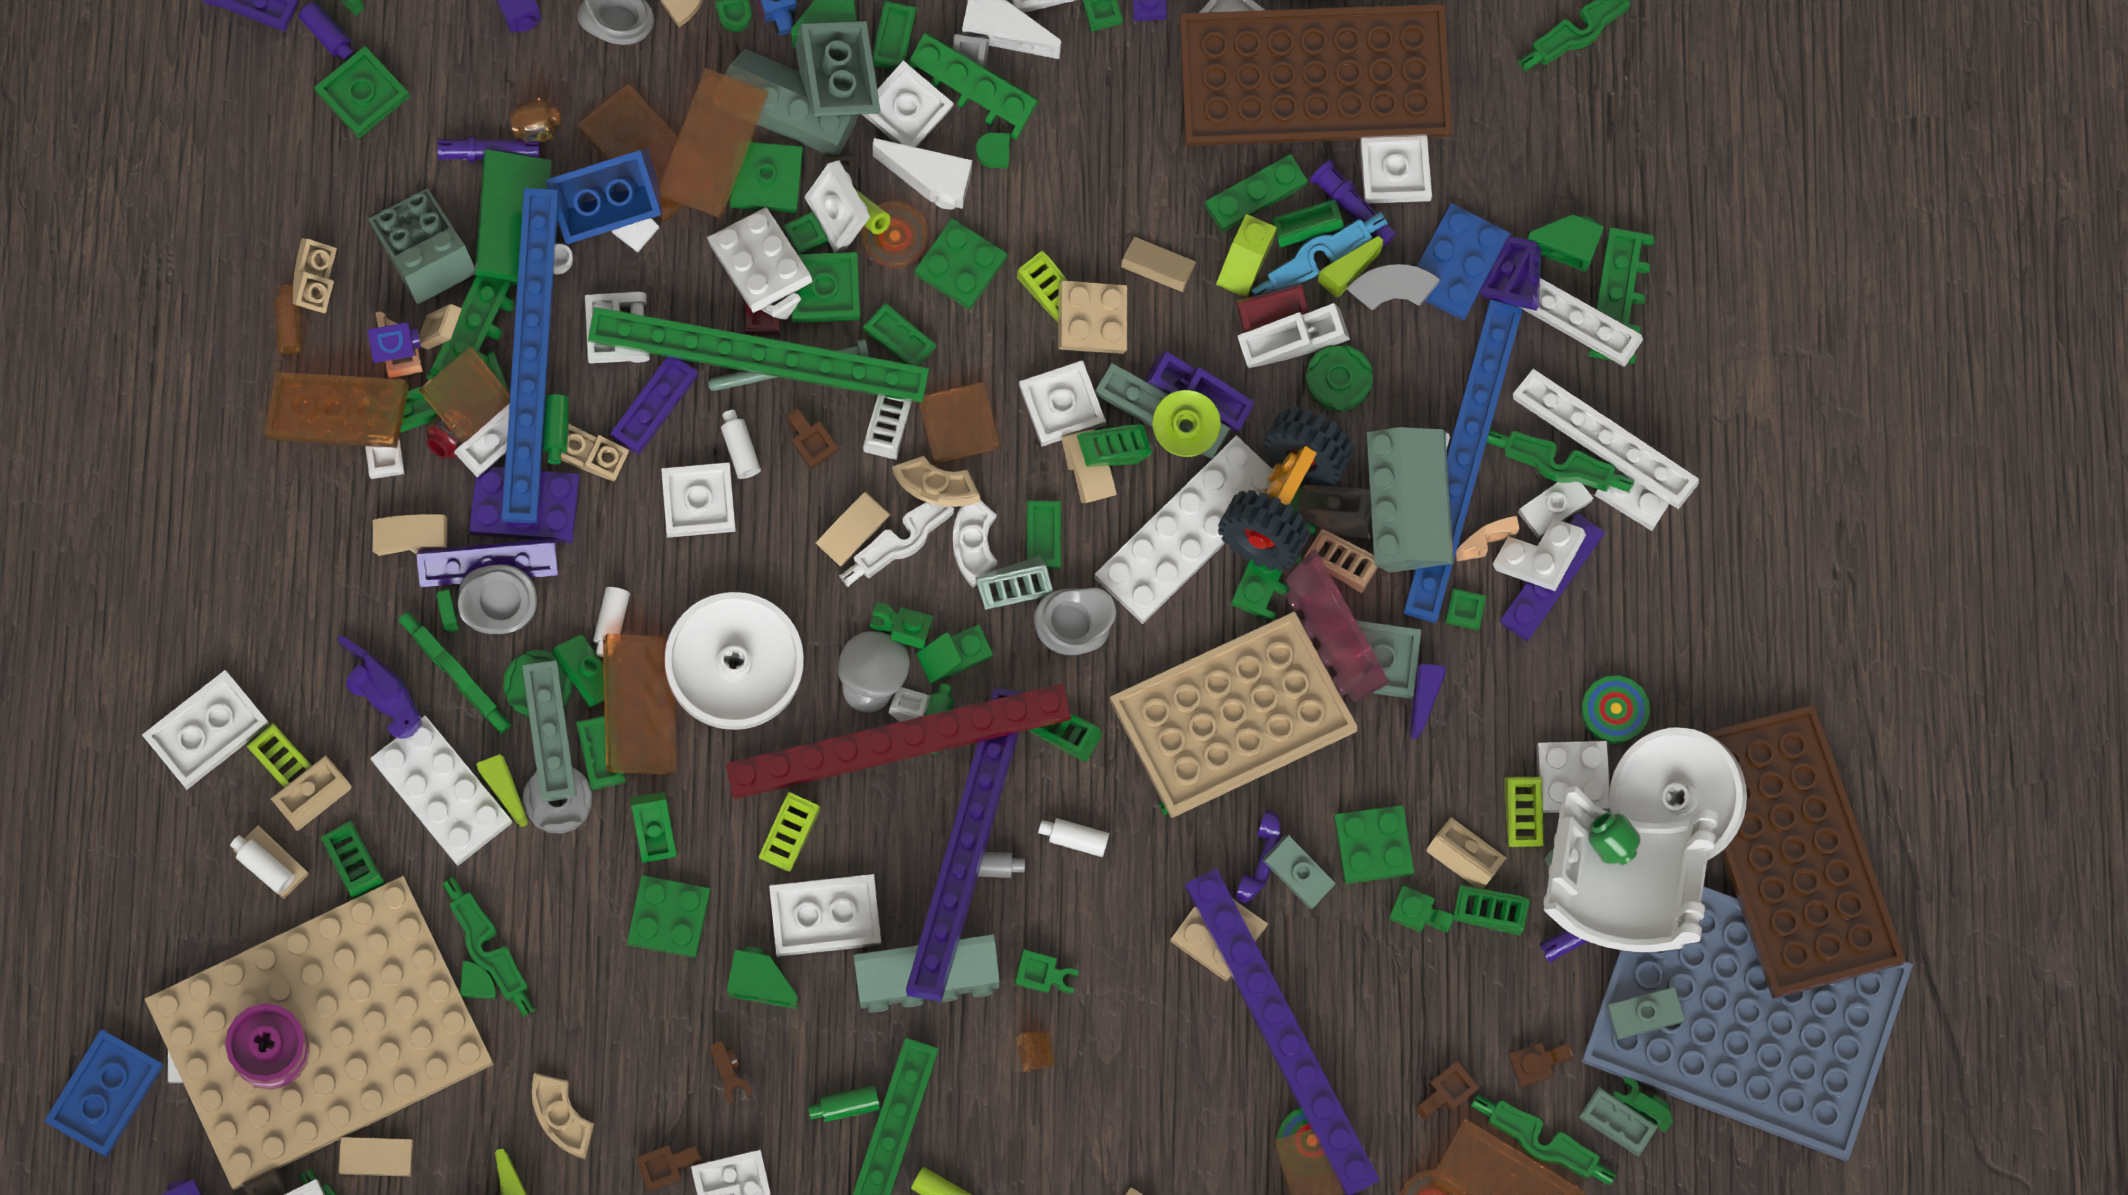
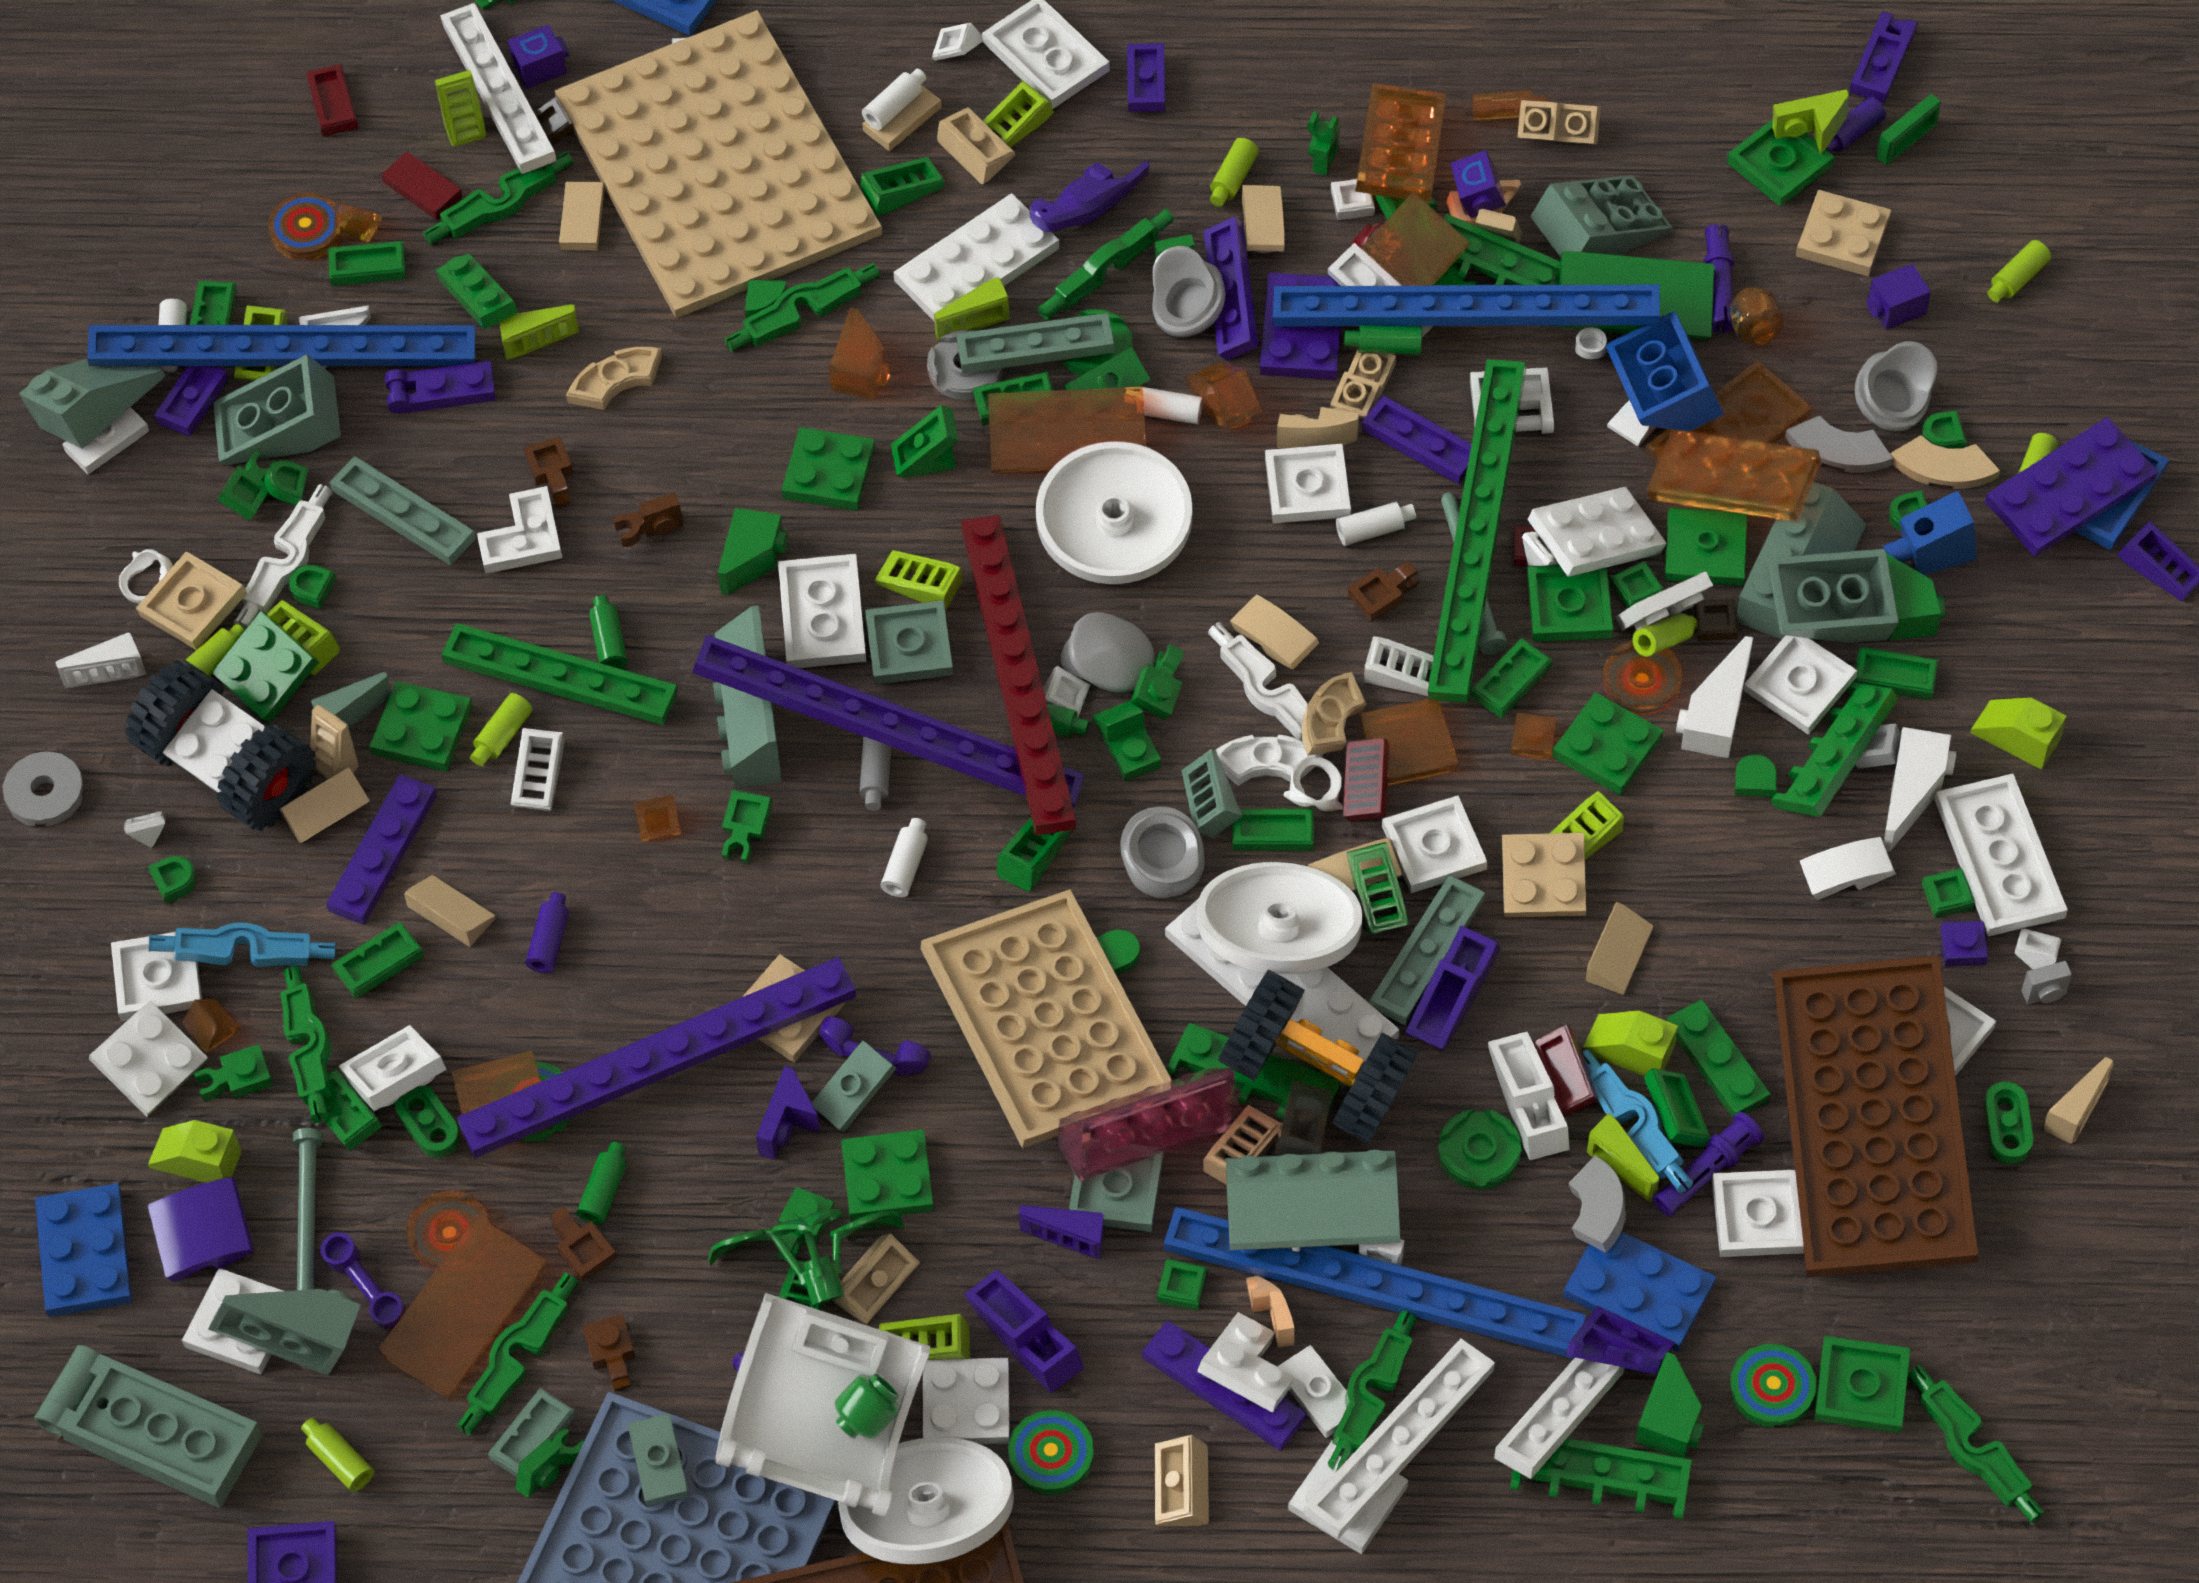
camera: 100 degrees right, 15 degrees down
(187, 814) = (956, 41): none -> white slope
(241, 638) = (1146, 77): none -> dark purple plate
(261, 1026) = (692, 98): magenta wheel -> none
(332, 478) = (1323, 143): none -> green plate
(335, 48) = (1815, 114): none -> lime slope
(353, 561) = (1233, 171): none -> lime cylinder
(440, 47) = (1843, 233): none -> tan plate
(554, 890) = (858, 360): none -> clear orange slope
(603, 566) = (1225, 394): none -> clear orange slope
(641, 482) = (1331, 427): none -> tan slope
(669, 65) = (1841, 449): none -> light grey tile
(858, 838) = (909, 642): none -> sand green plate
(953, 322) = (1533, 736): none -> clear orange plate
(959, 1142) = (537, 739): none -> white slope
(1001, 455) = (1366, 779): none -> tile
(1013, 487) = (1330, 799): none -> white piece
(1082, 83) = (1847, 865): none -> white slope
(1151, 1138) = (548, 934): none -> dark purple cylinder
(1154, 519) = (1279, 918): none -> white dish
(1161, 657) = (1120, 949): none -> green tile
(1191, 408) = (1404, 944): lime dish -> none
(1315, 926) = (786, 1109): none -> dark purple slope
(1390, 1077) = (602, 1185): none -> green cylinder
(1482, 884) = (820, 1275): none -> green plant
(1512, 731) = (1025, 1330): none -> dark purple slope
(1539, 102) = (1862, 1384): none -> green plate
(1539, 168) = (1773, 1385): none -> green tile
(1636, 610) = (1181, 1482): none -> tan slope

